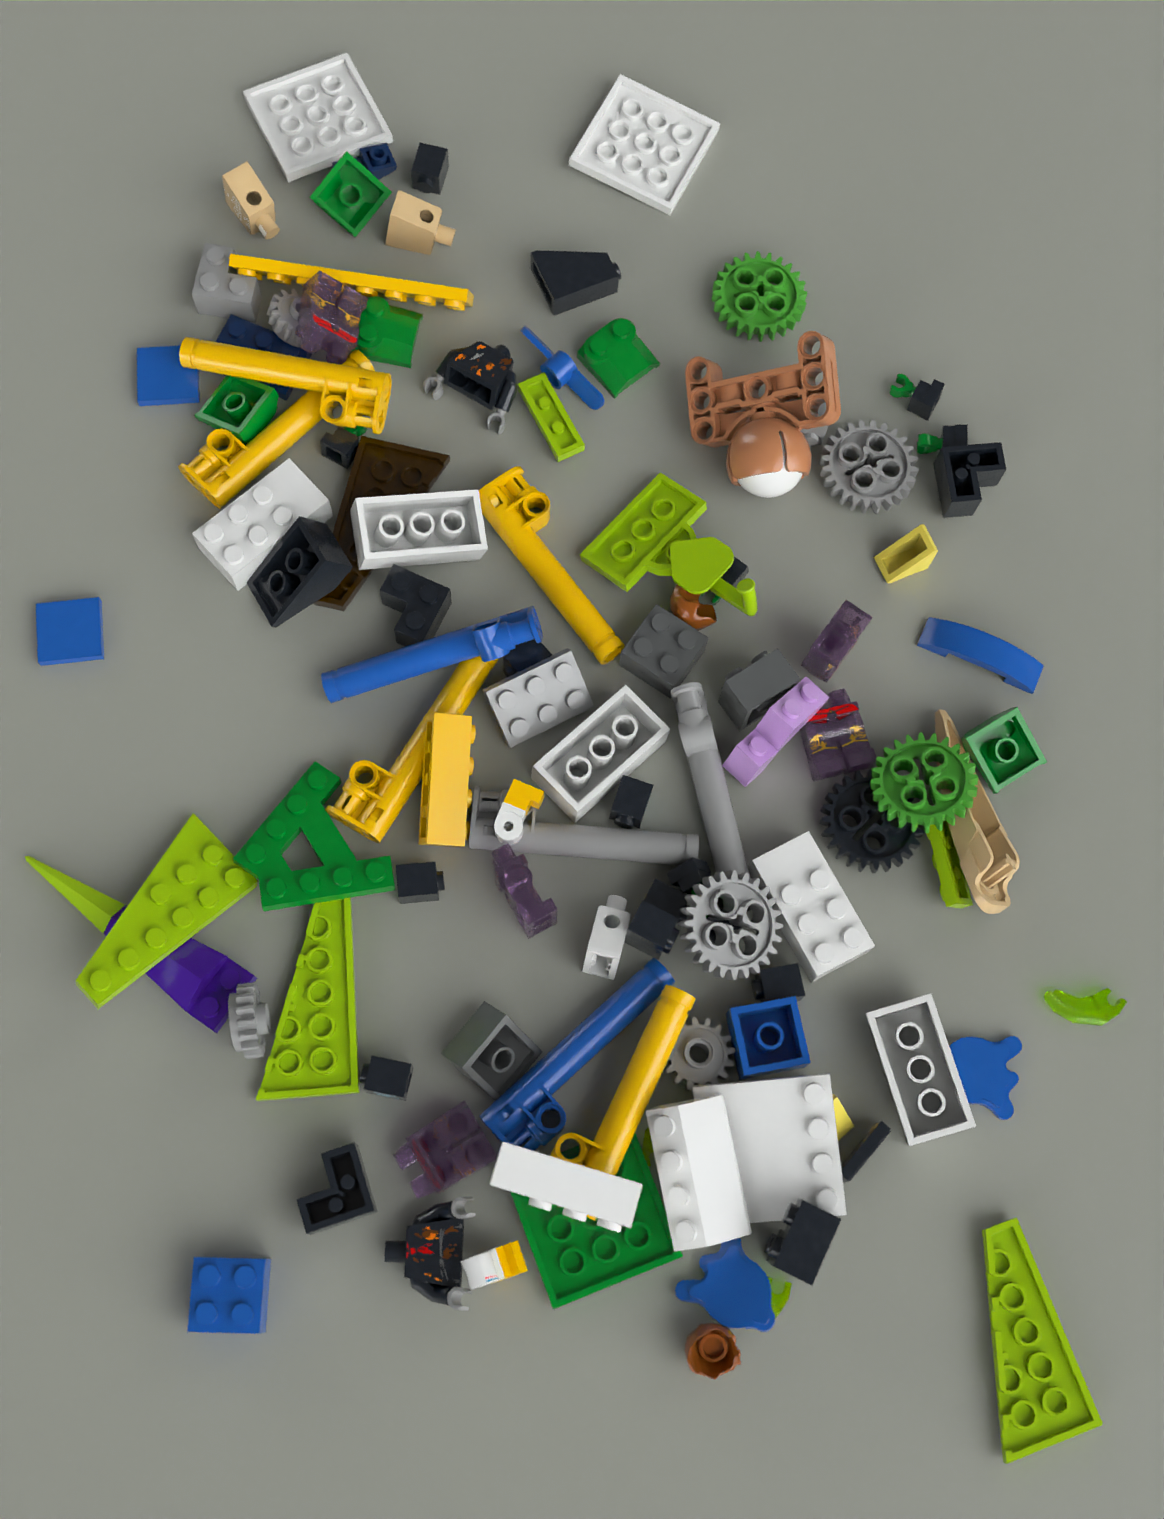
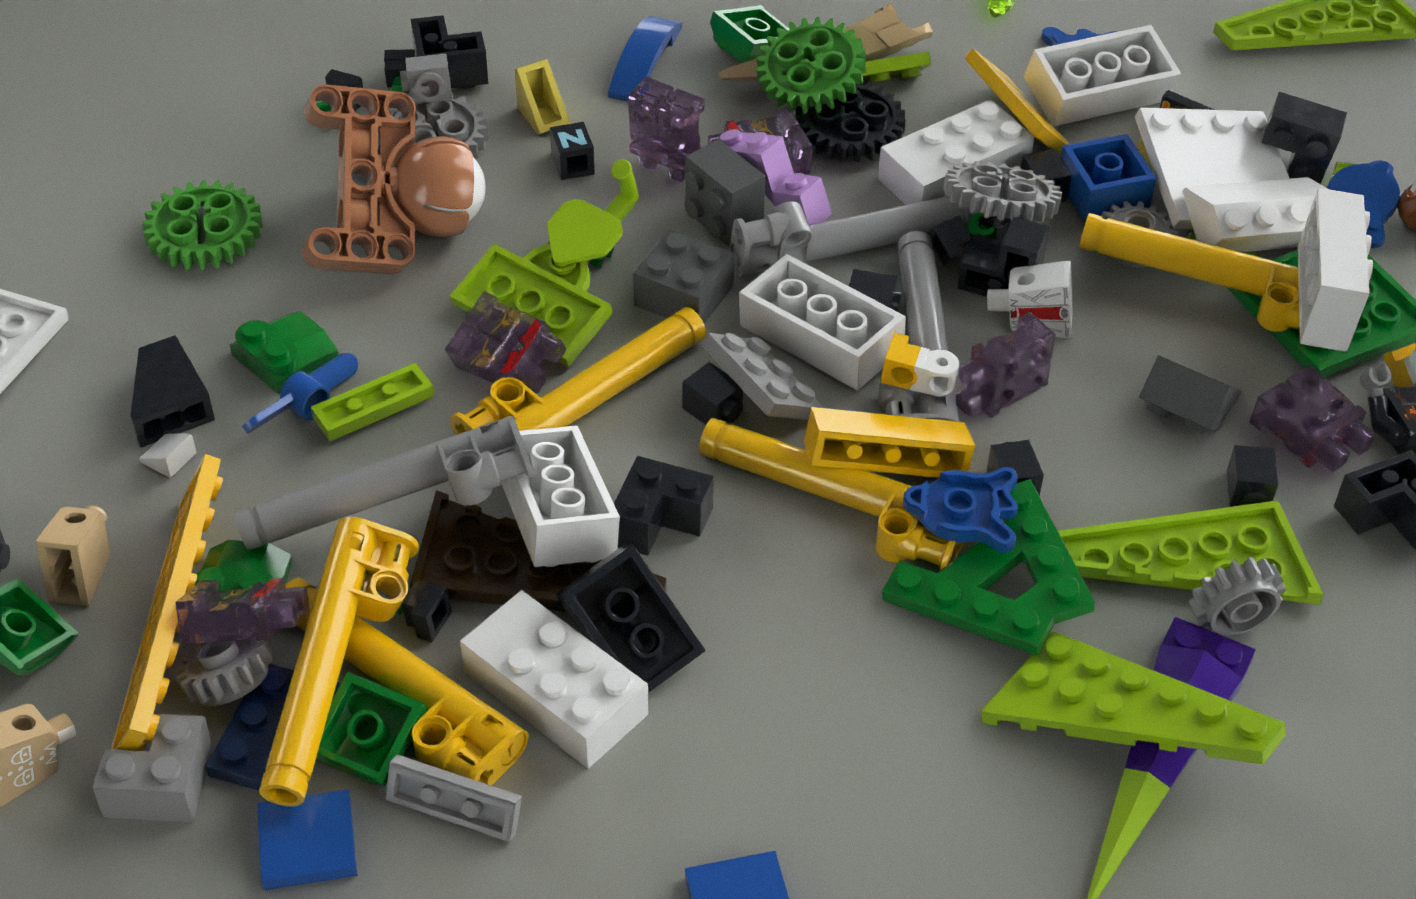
camera: 90 degrees left, 25 degrees down
(176, 457) = (453, 798): none -> light grey tile
(366, 826) = (967, 506): none -> blue tile
(431, 459) = (469, 460): none -> light grey piece
(480, 375) = (320, 454): black torso -> none
(485, 639) = (707, 386): blue piece -> none
(516, 284) = (170, 453): none -> white slope
(519, 1109) = (1238, 355): blue piece -> none
(591, 507) = (504, 344): none -> hips
(690, 610) = (624, 262): dark orange hair -> none
(838, 576) = (572, 150): none -> black brick
(877, 979) = (1017, 102): none -> yellow tile
(918, 455) = (427, 78): none -> light grey brick

